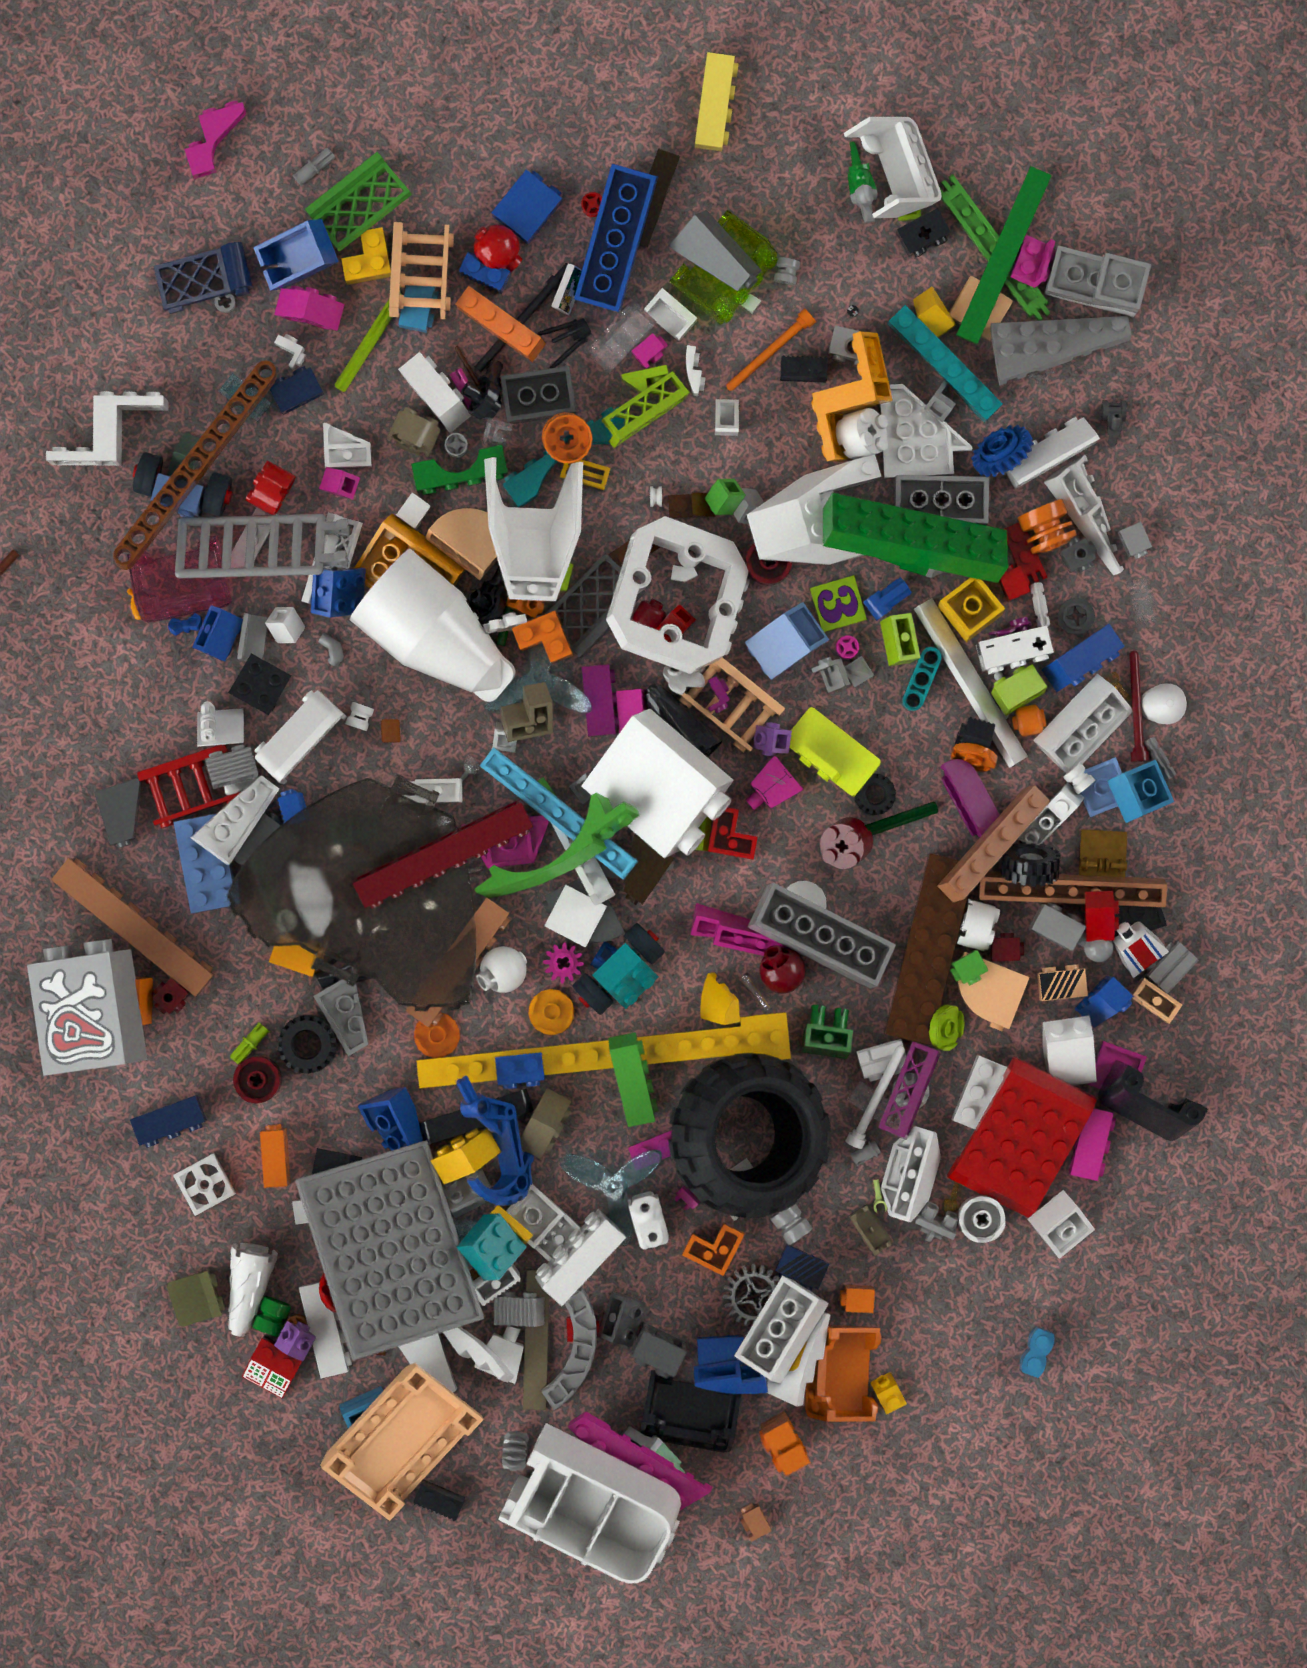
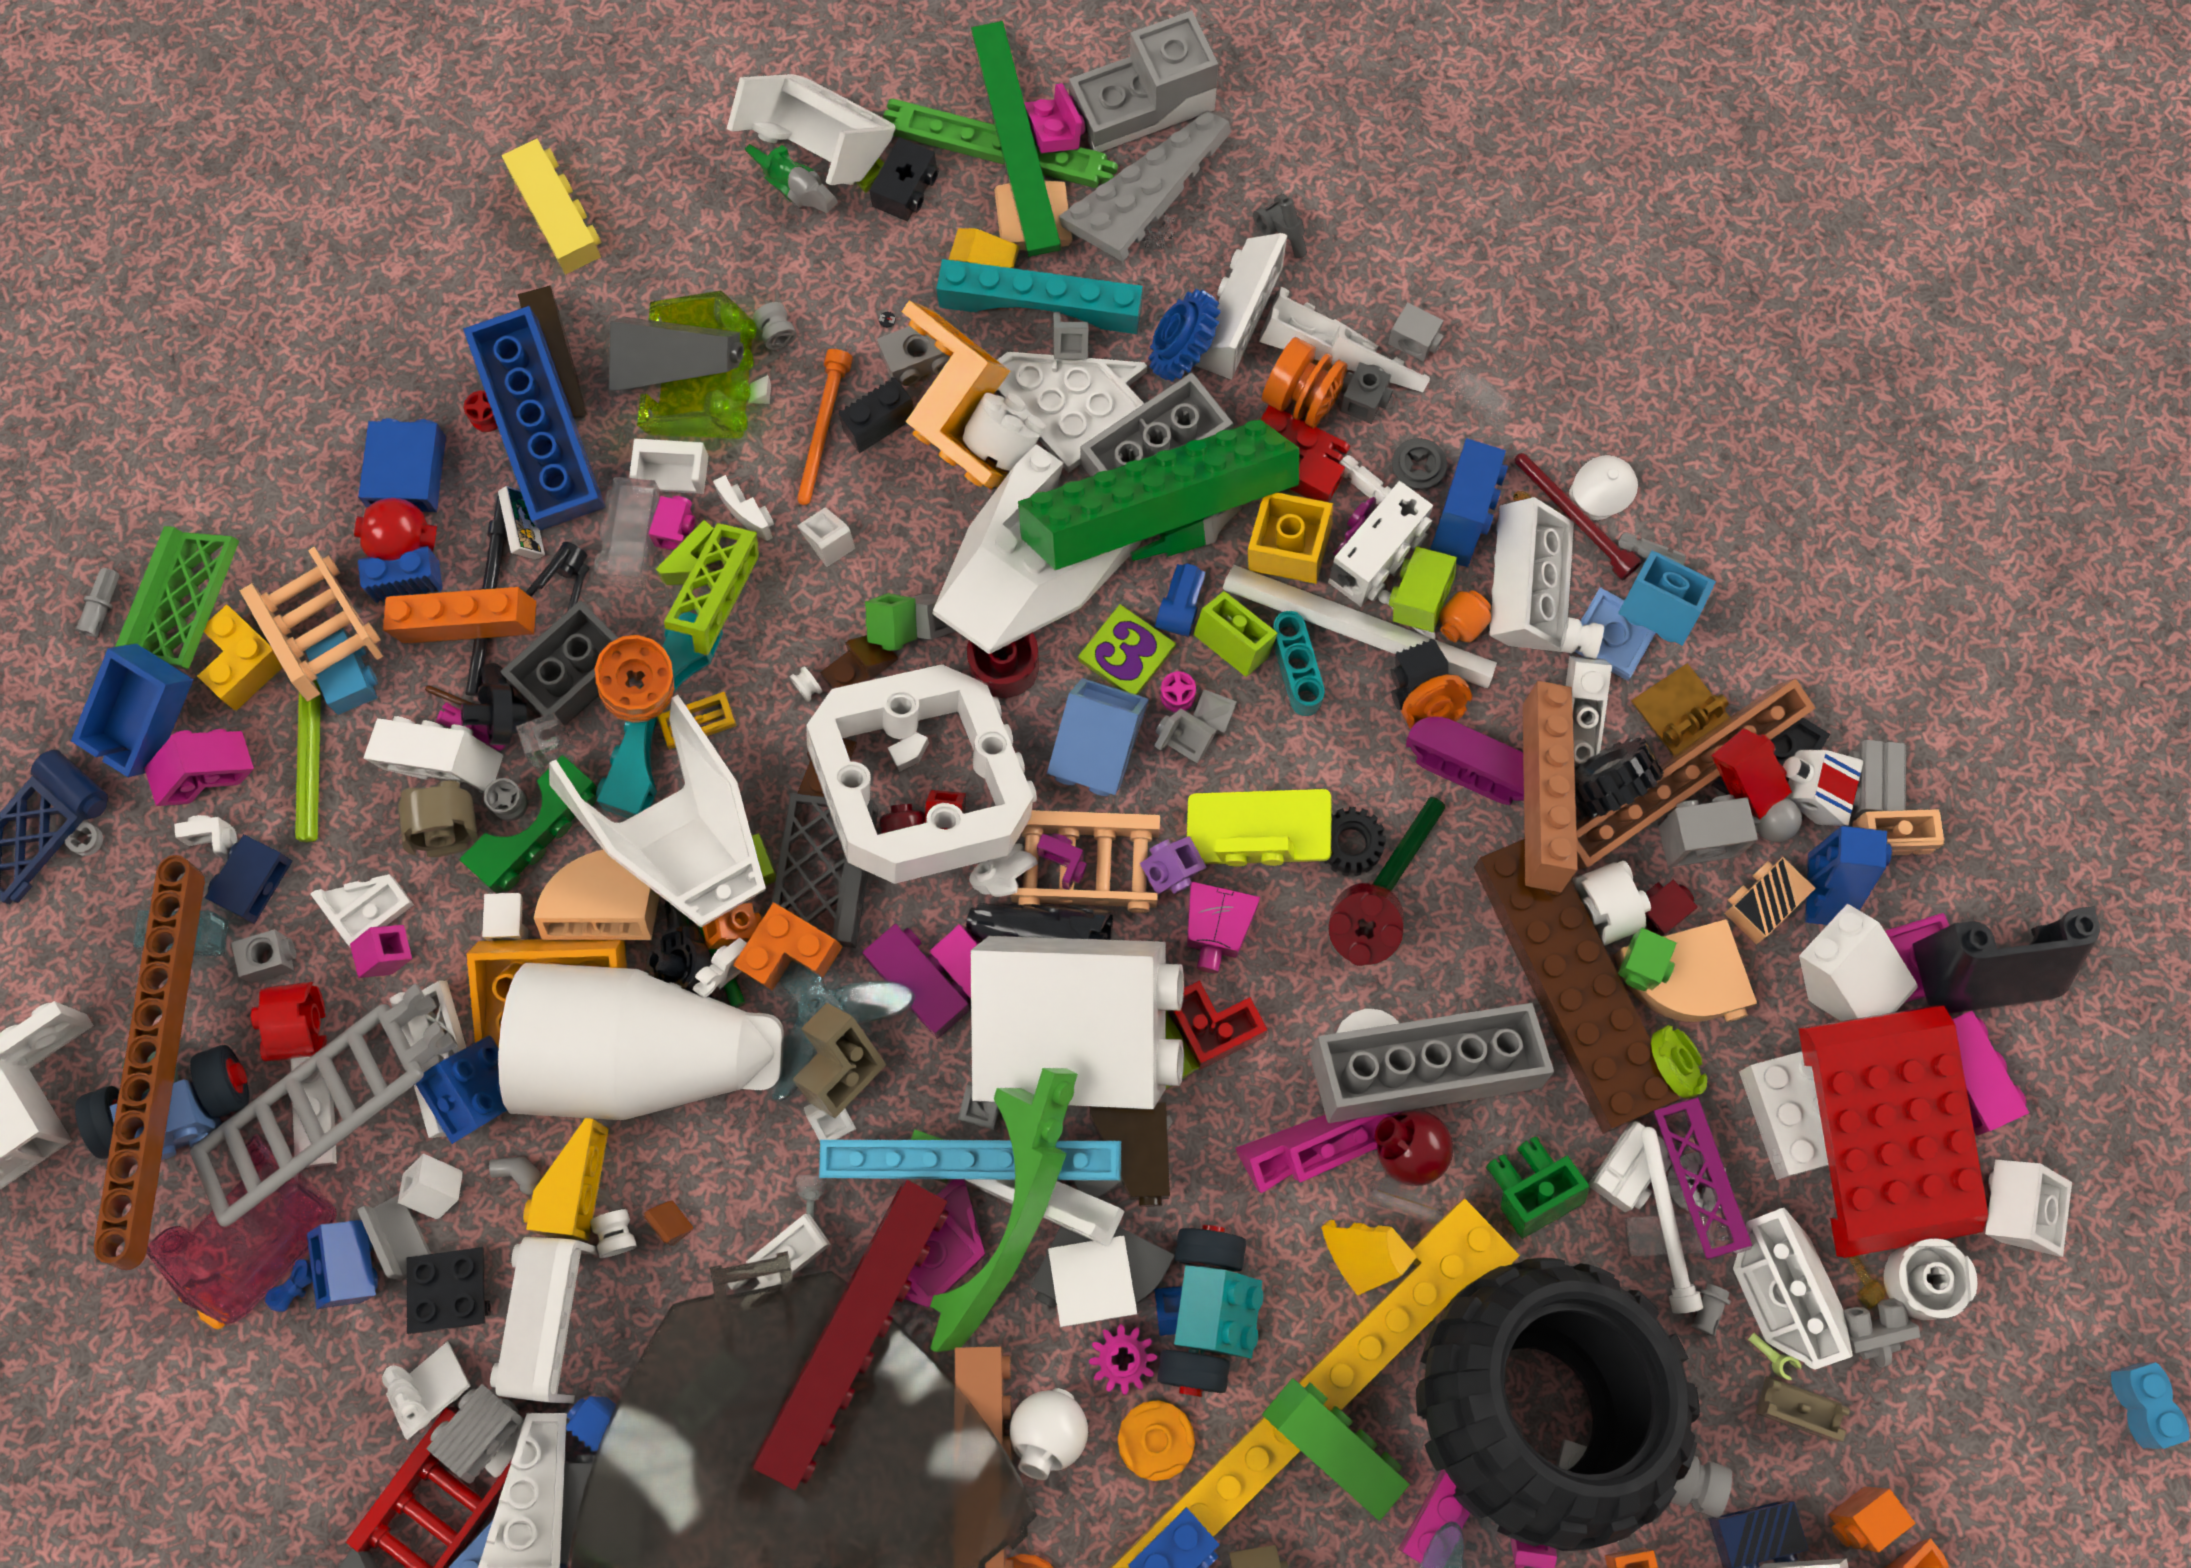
camera: 30 degrees left, 15 degrees down
(268, 440) = (250, 951): none -> light grey brick
(351, 681) = (569, 1189): none -> yellow slope

